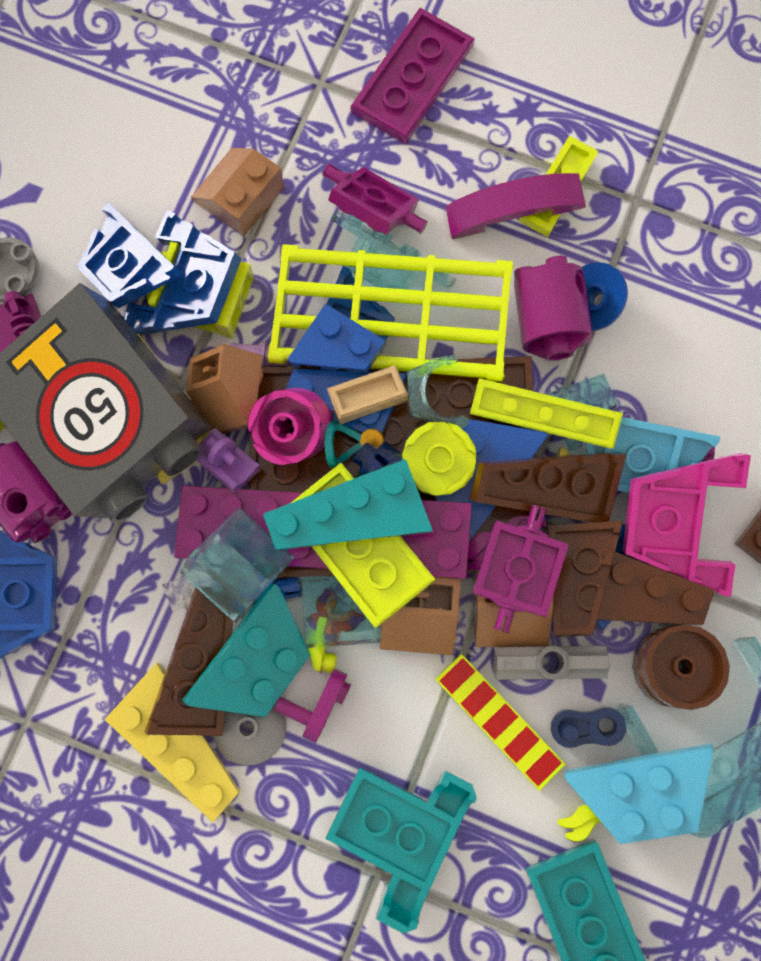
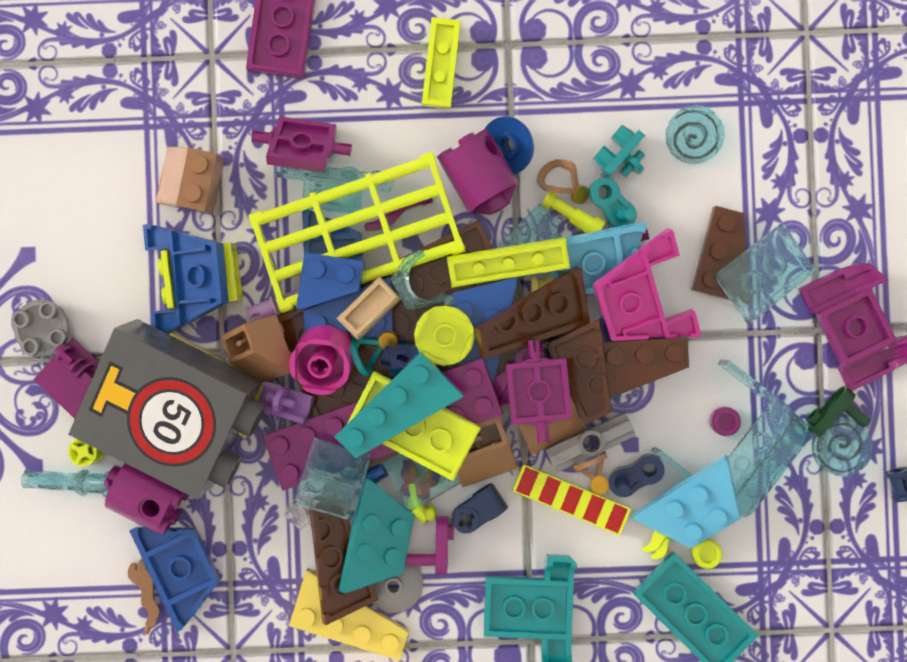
camera: 25 degrees left, 10 degrees up
(124, 261) = (131, 282): wing -> none
(394, 682) = (483, 504): none -> dark blue piece
(444, 314) = (393, 216): none -> magenta hair
(515, 200) = (413, 95): magenta slope -> none
(539, 718) = (598, 483): none -> piece
(633, 862) = (707, 554): none -> neon yellow tile
(638, 405) = (576, 216): none -> neon yellow piece
(651, 381) = (578, 193): none -> medium nougat piece
(686, 411) = (614, 206): none -> teal piece
(702, 671) = (702, 403): reddish brown wheel -> none
(719, 714) = (725, 421): none -> magenta tile
(728, 351) = (627, 141): none -> teal hips

